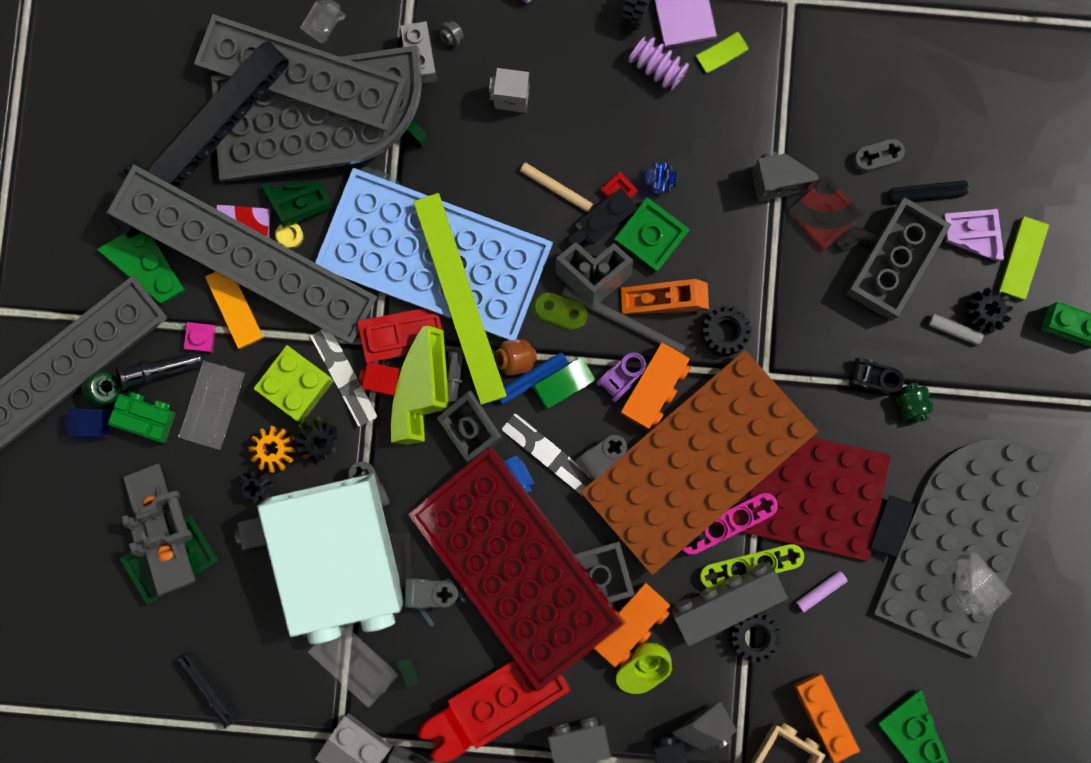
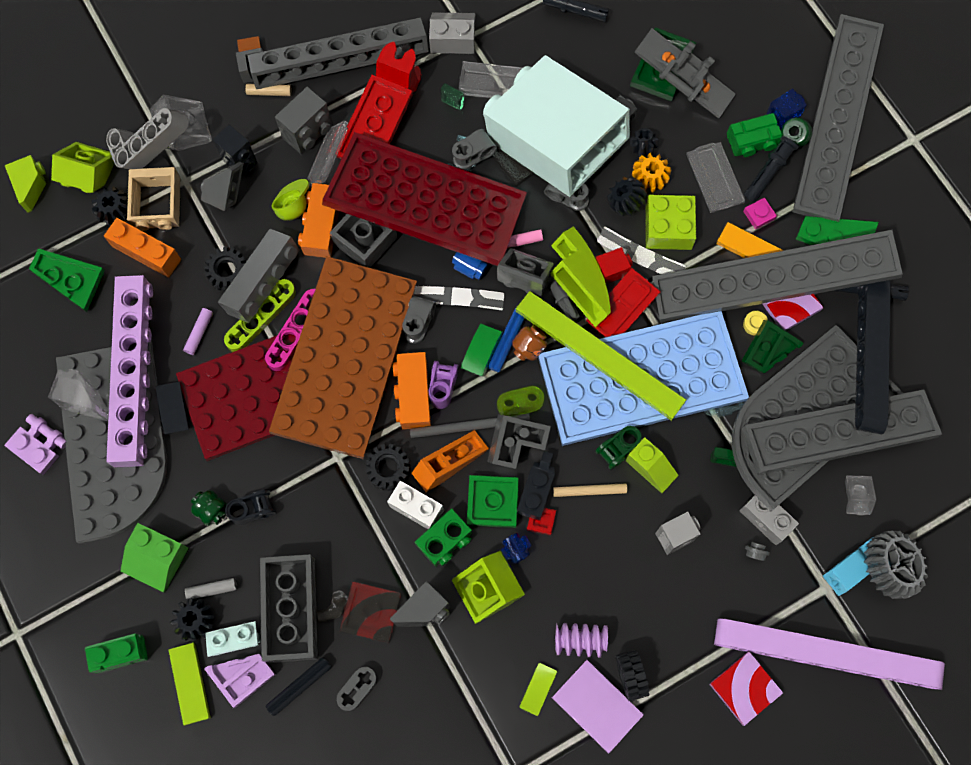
camera: 150 degrees right, 10 degrees down
(440, 468) = (525, 238): none -> bright pink piece
(486, 170) = (652, 465): none -> lime slope
(504, 204) = (616, 449): none -> dark green piece
(579, 693) = (327, 153): none -> clear piece
(707, 162) = (488, 586): none -> lime slope
(720, 236) = (439, 534): none -> green brick
(724, 275) = (415, 505): none -> white brick
(964, 267) = (232, 639): none -> light aqua hinge
(970, 508) = (125, 291): none -> lavender brick
(991, 393) = (152, 557): none -> bright green slope
(1049, 579) = (31, 449): none -> lavender plate

